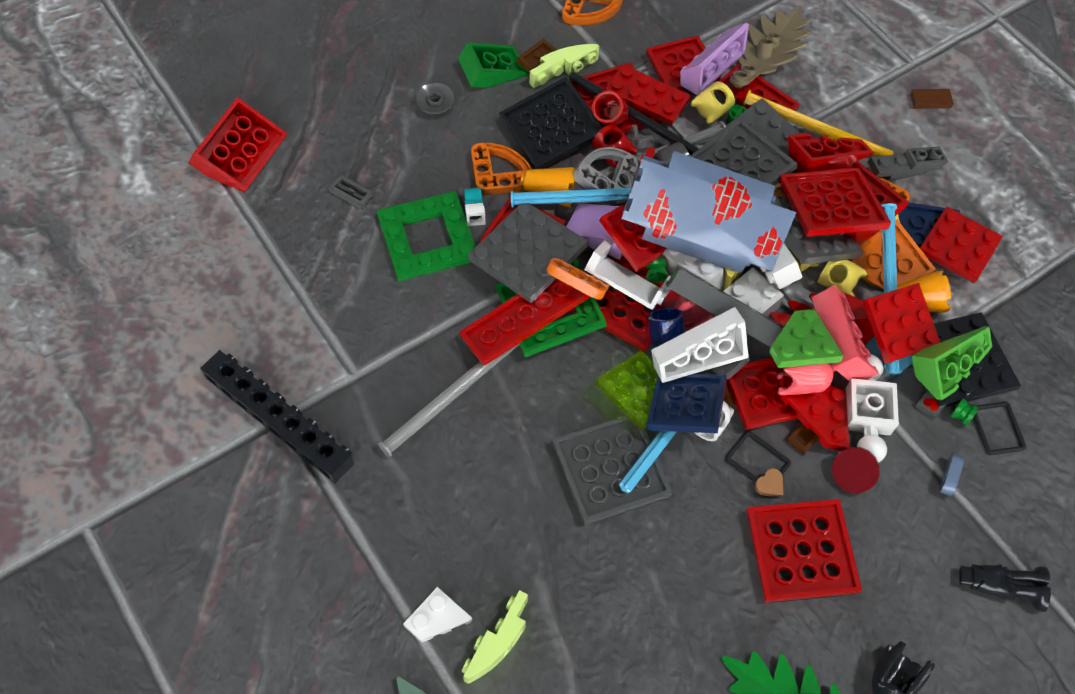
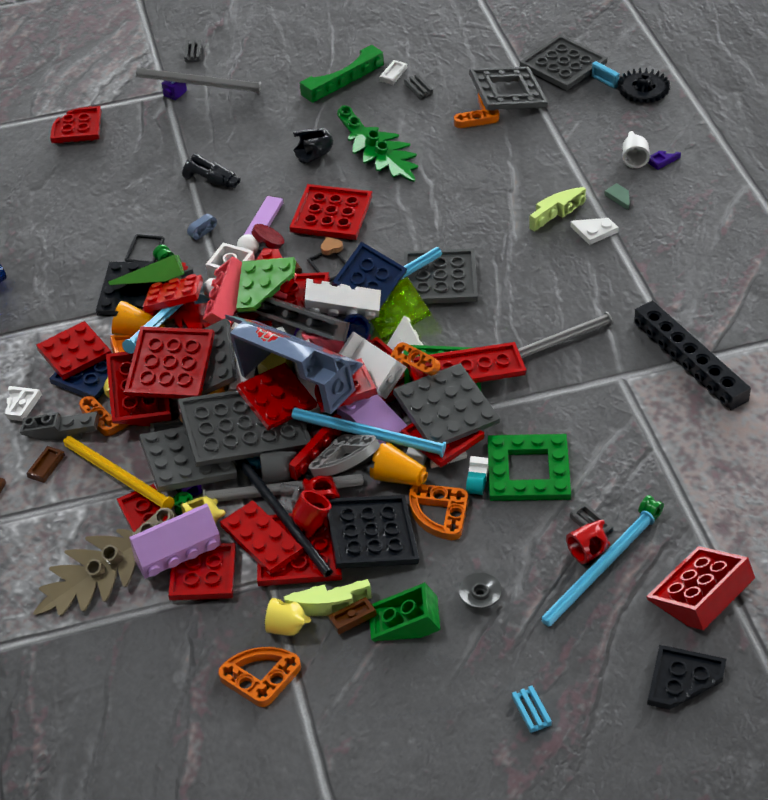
camera: 155 degrees left, 15 degrees down
(246, 72) = (682, 676): none -> black plate
(294, 211) = (652, 506): none -> green wheel
(333, 149) = (598, 568): none -> medium azure axle
(348, 156) = (588, 541): none -> red piece
(368, 21) = (525, 695): none -> medium azure tile
(589, 32) = (284, 618): none -> light yellow piece
(605, 344) = (404, 333): none -> white wing
(825, 153) = (137, 420): red wedge -> none
(885, 519) = (266, 212): none -> lavender tile
(892, 131) = (45, 464): none -> reddish brown tile
(966, 182) = (21, 402): none -> white wing

